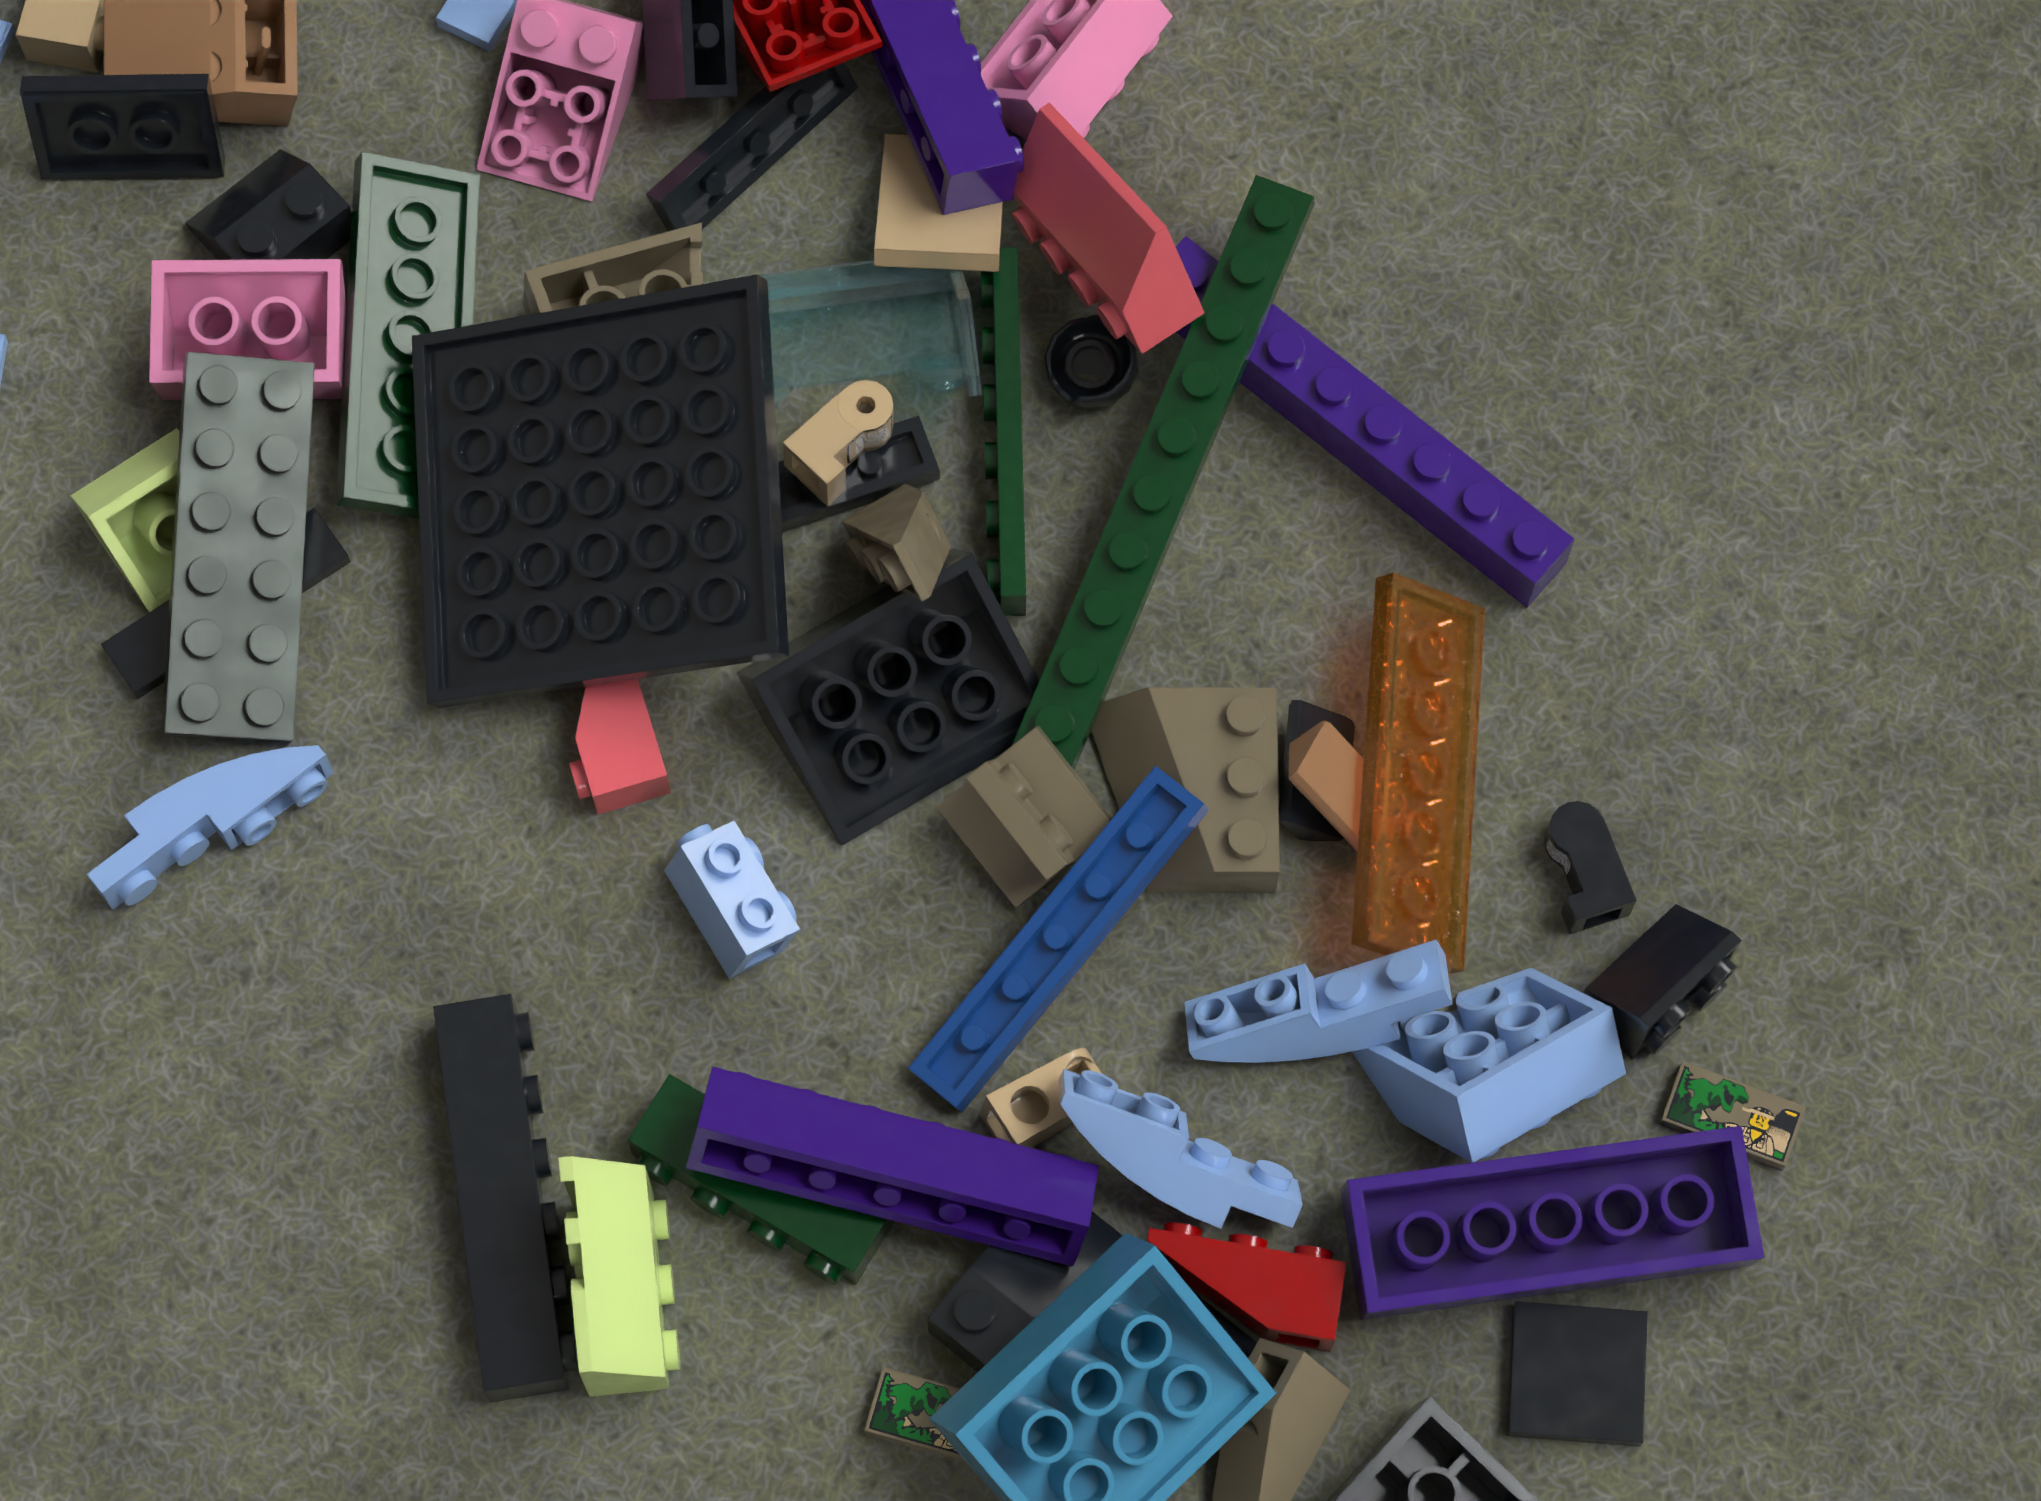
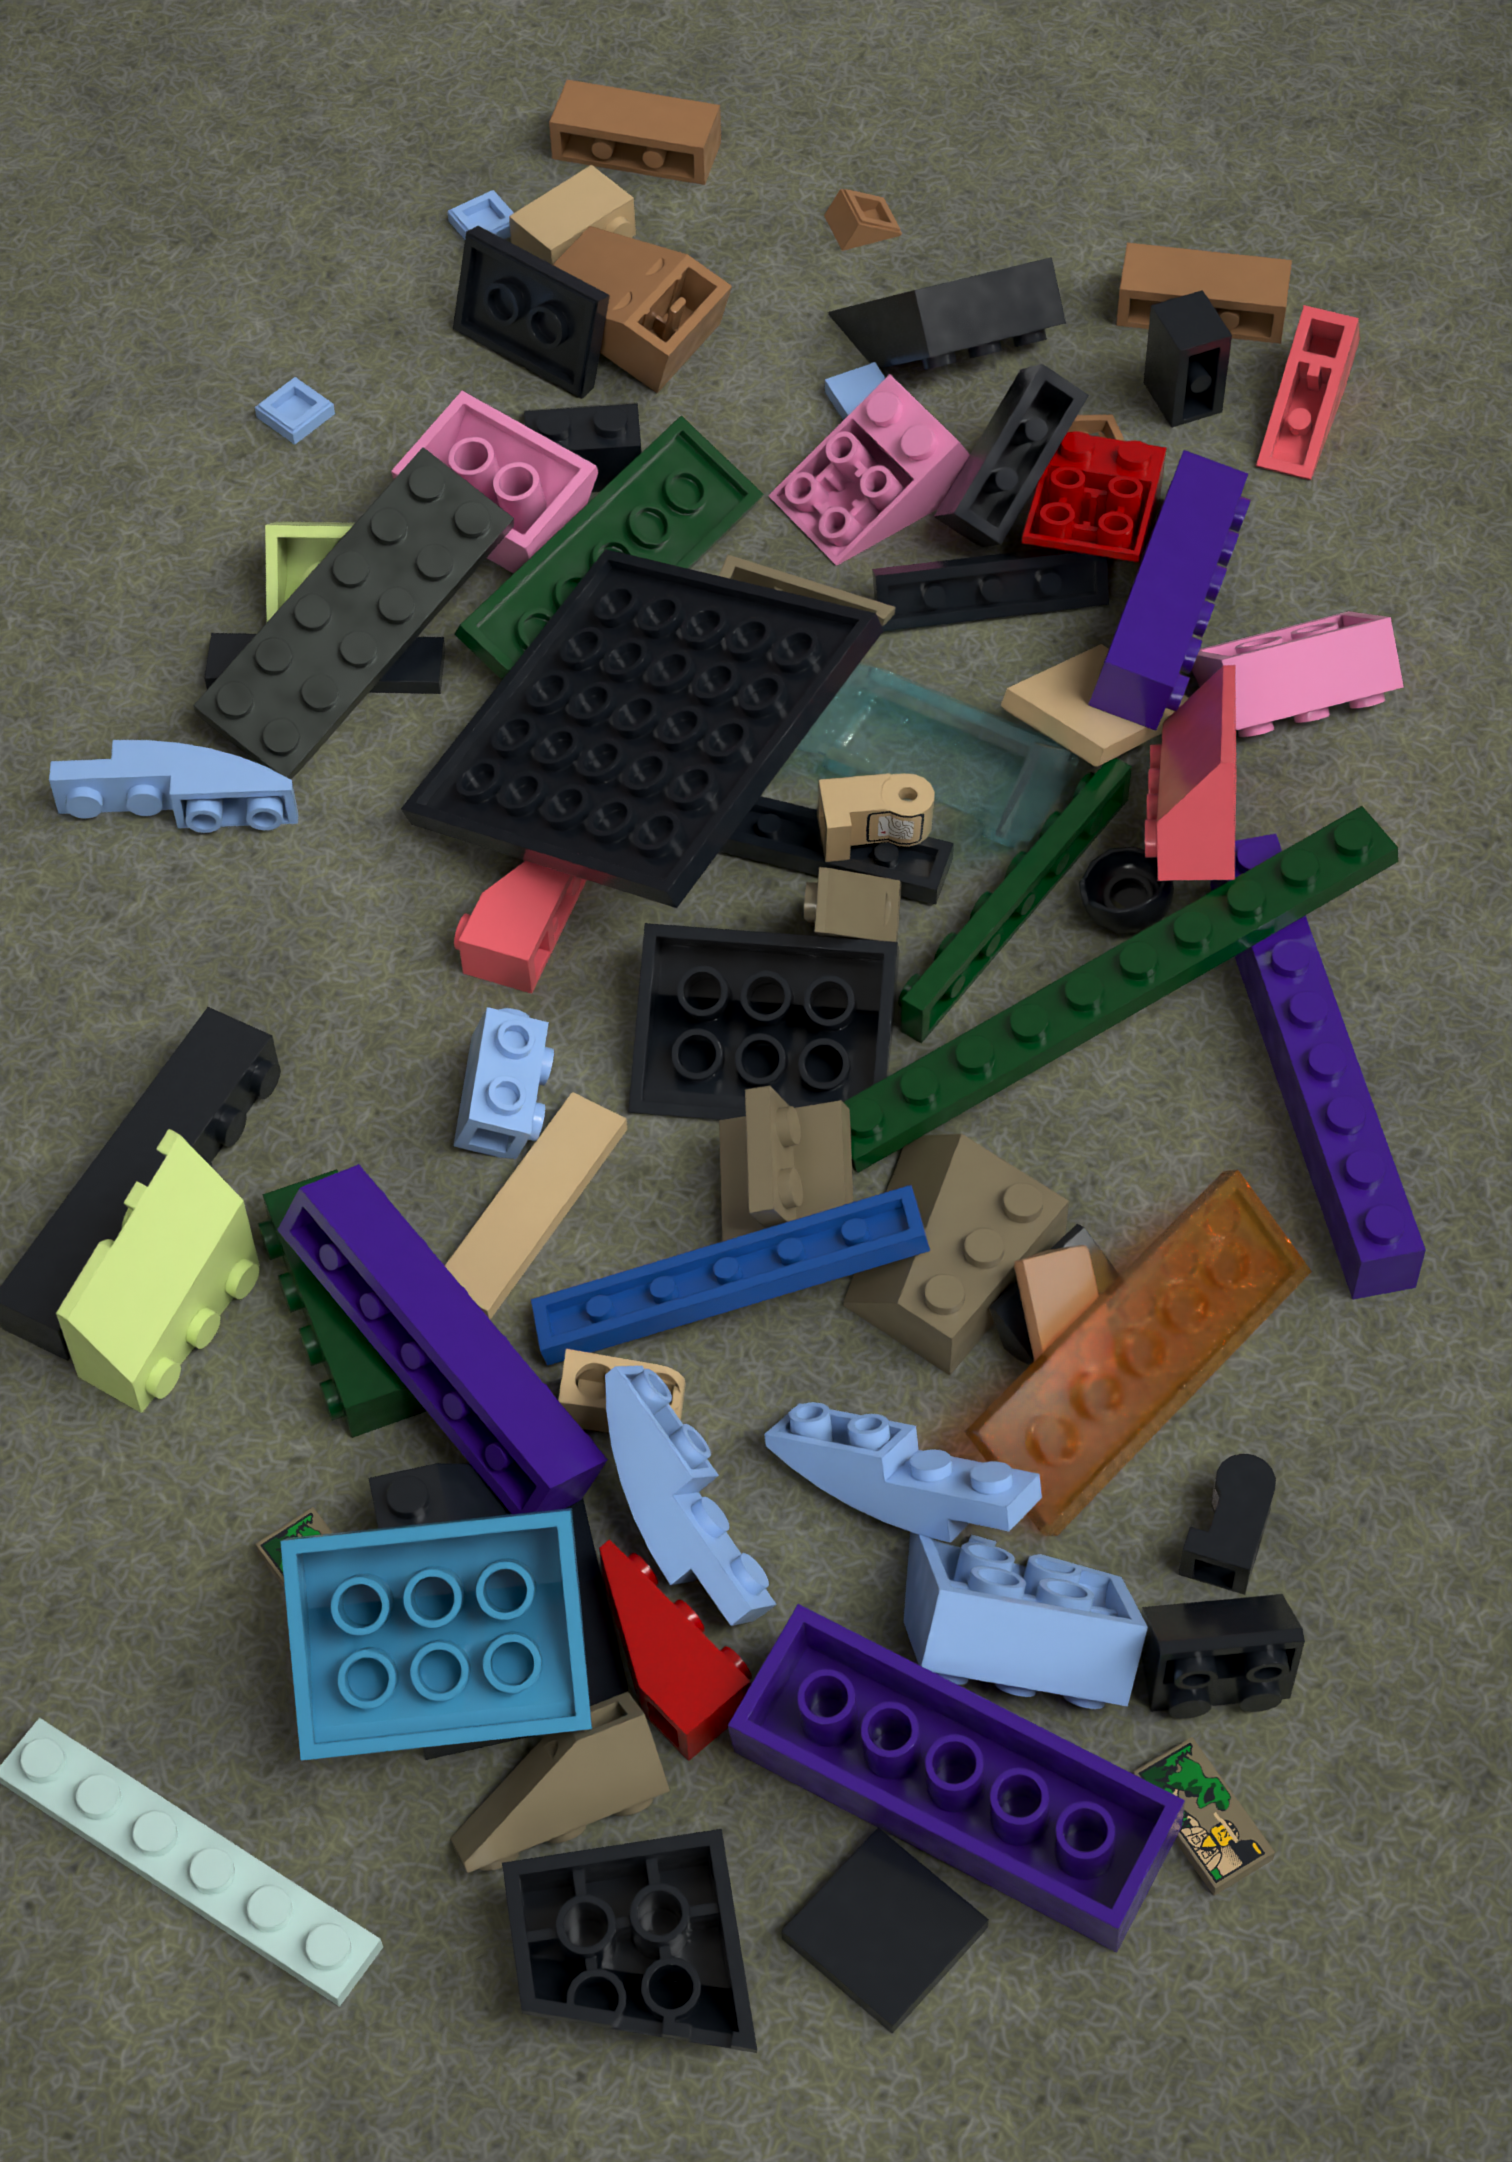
camera: 40 degrees right, 15 degrees down
(833, 979) = (535, 1200): none -> tan tile

